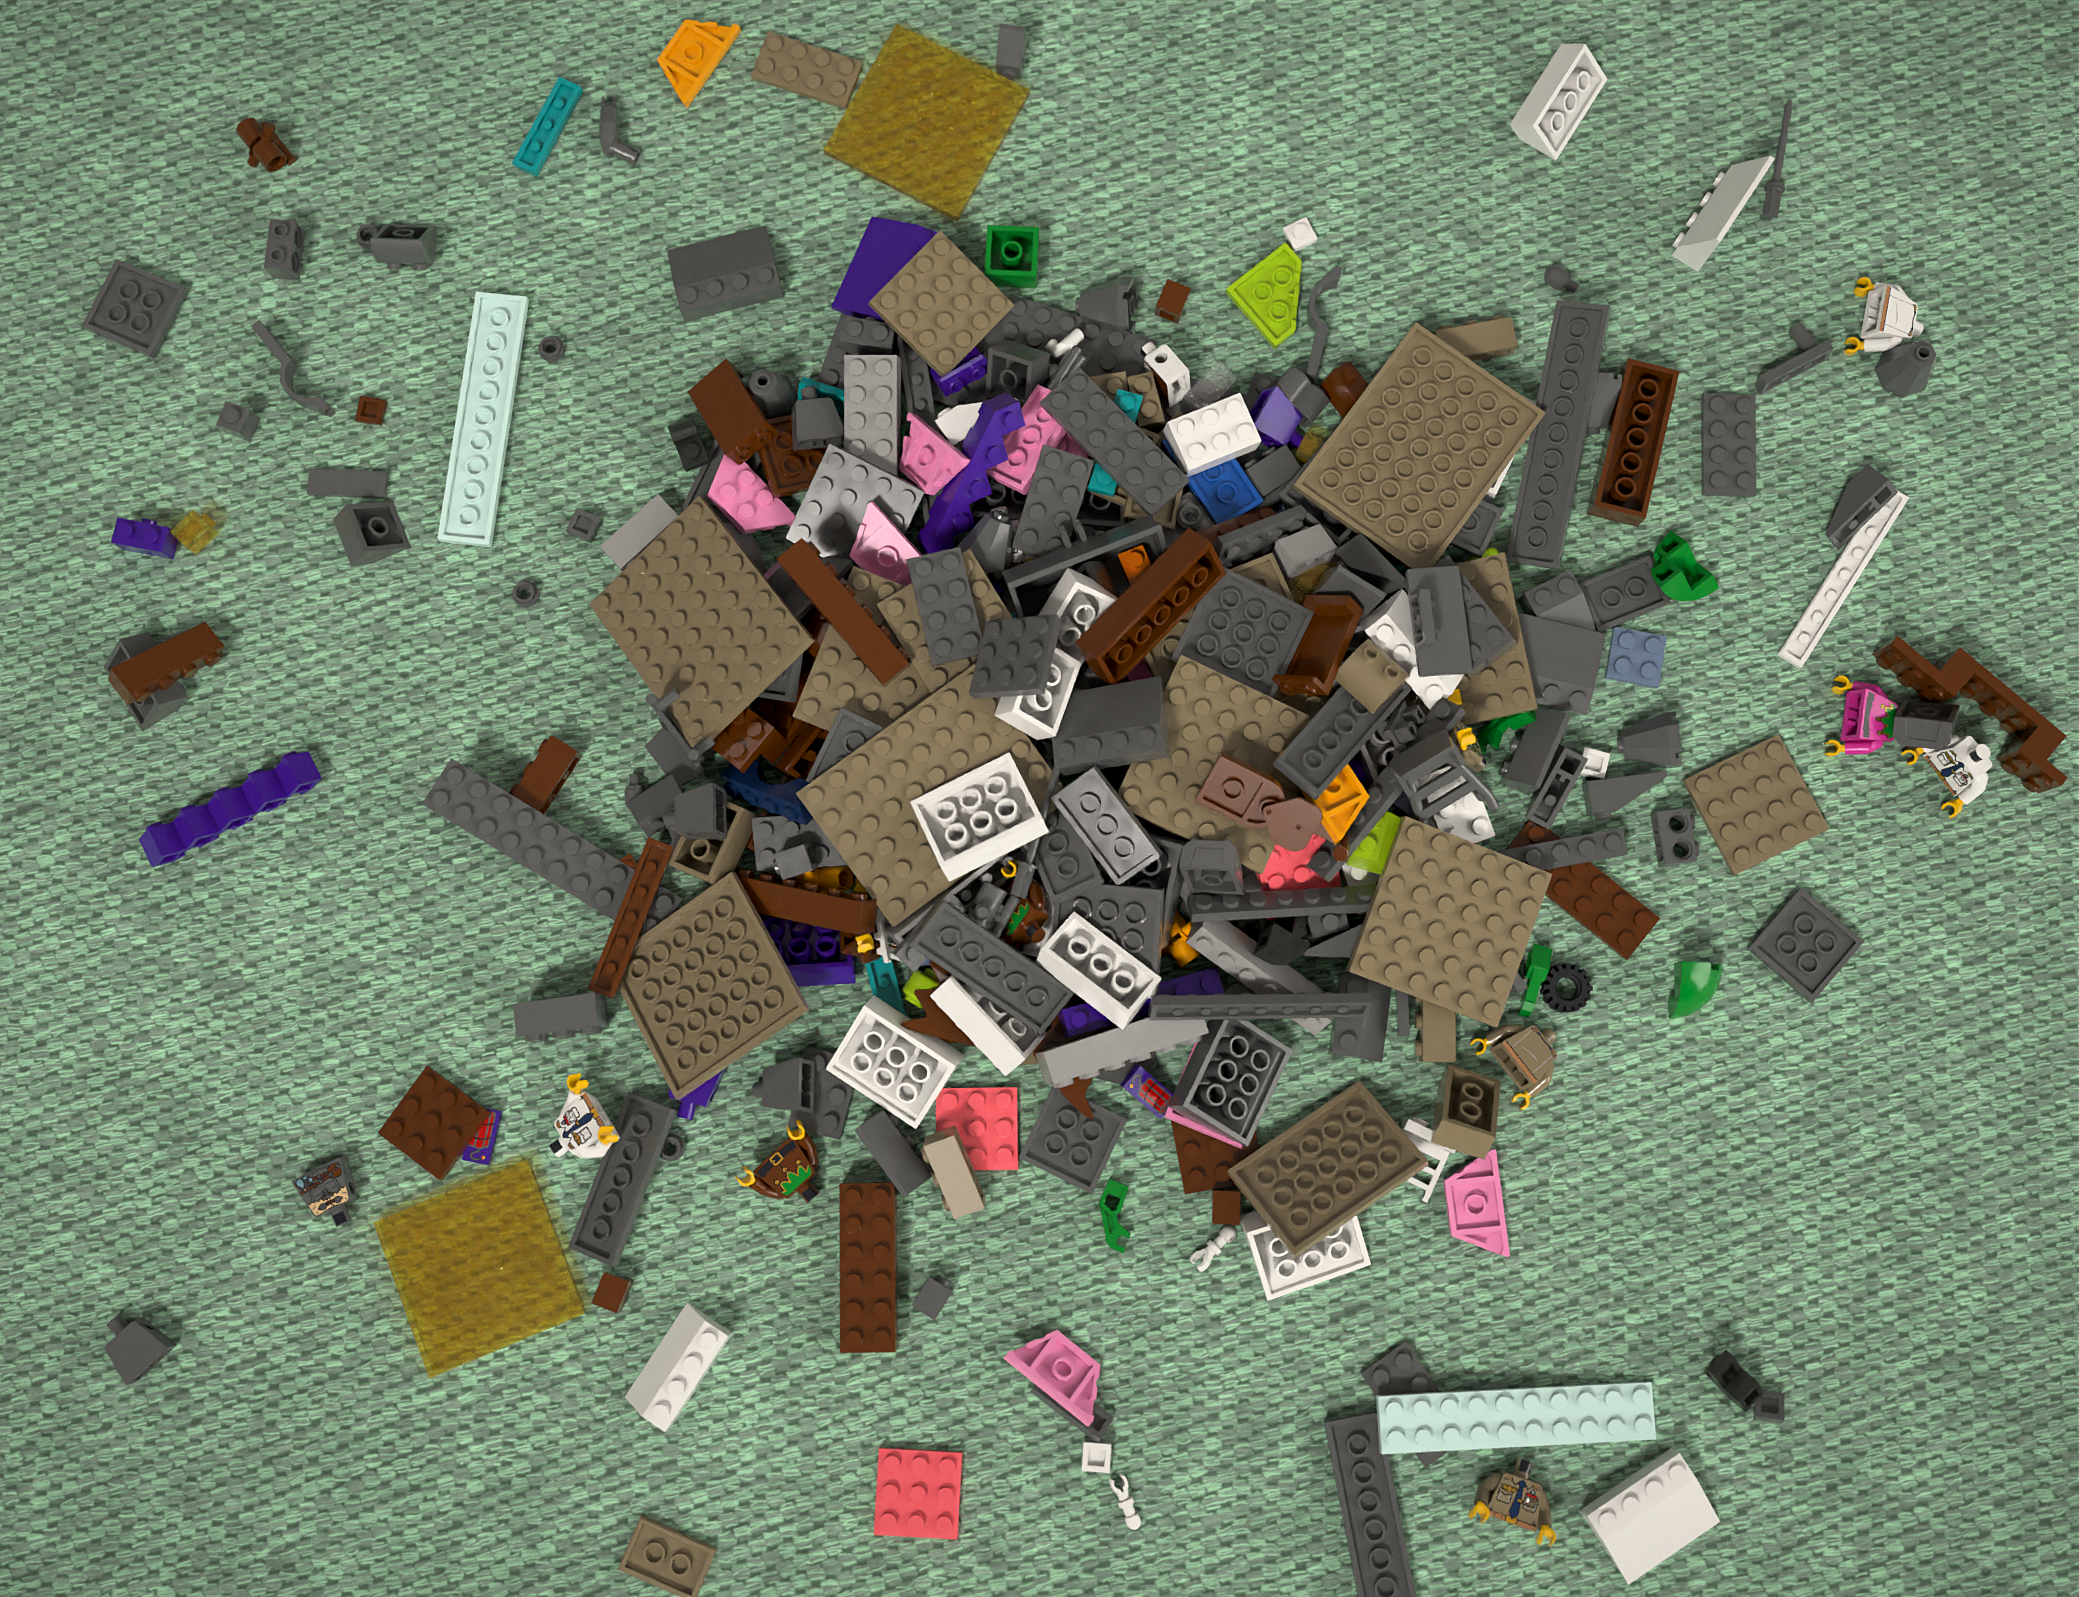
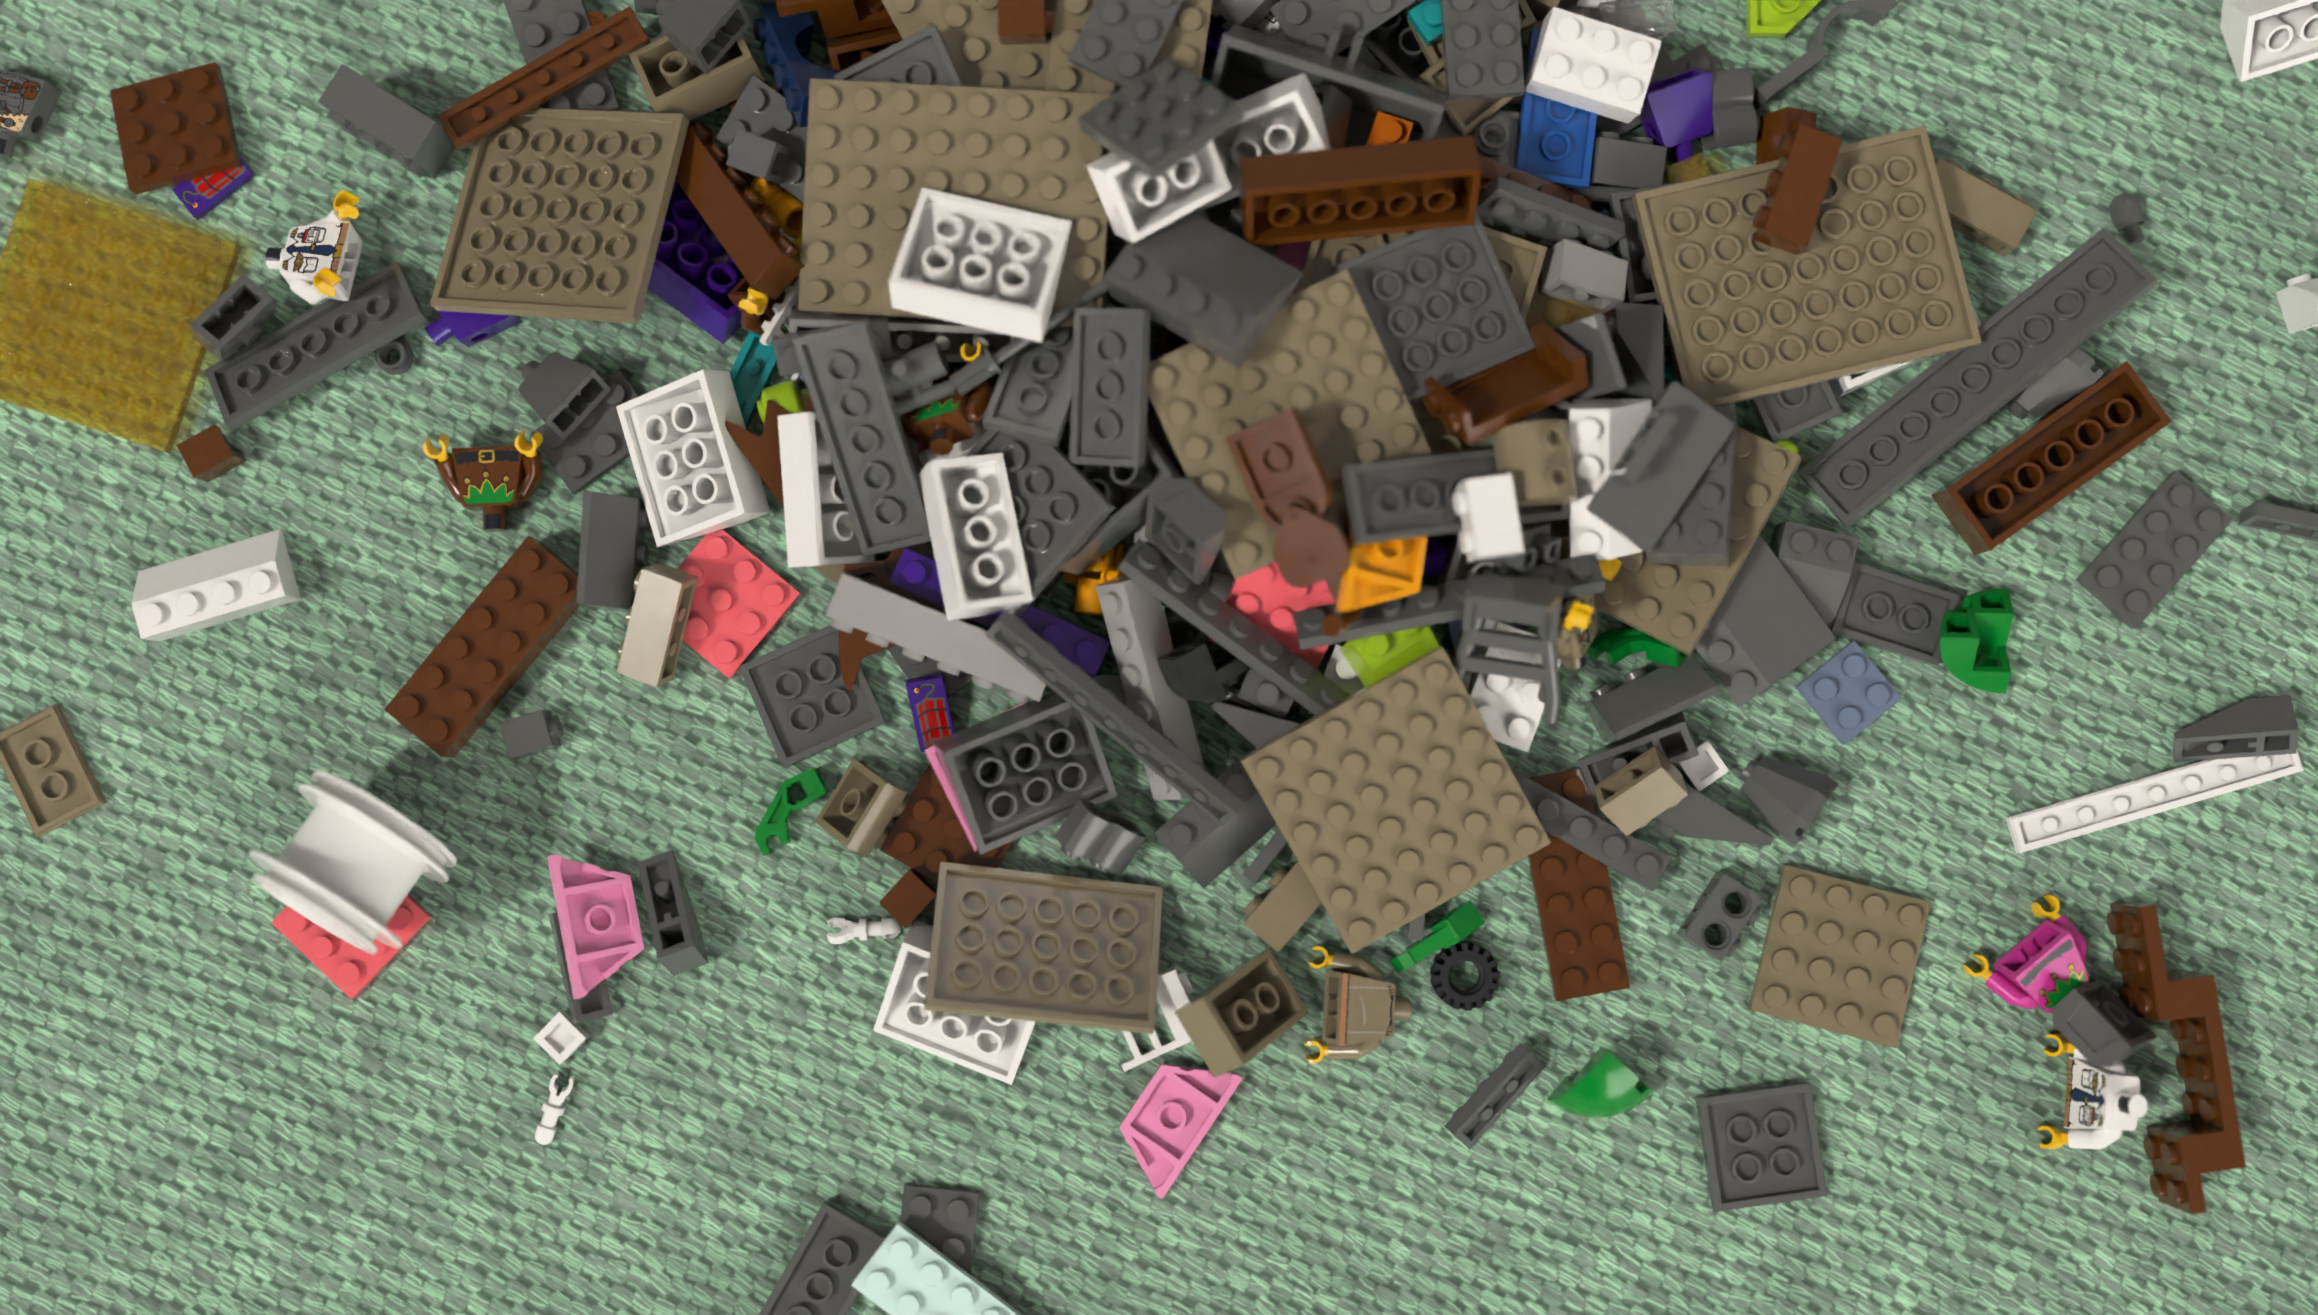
camera: 40 degrees right, 5 degrees up
(564, 1203) = (233, 318): none -> dark grey brick
(902, 1453) = (351, 863): none -> white wheel
(1099, 1331) = (671, 915): none -> dark grey slope
(1155, 1179) = (862, 808): none -> dark tan brick
(1303, 1081) = (1099, 837): none -> dark grey brick
(1374, 725) = (1488, 518): none -> white brick
(1379, 412) = (1796, 188): none -> reddish brown brick
(1574, 805) = (1640, 791): none -> brick
(1639, 1040) = (1494, 1095): none -> dark grey plate

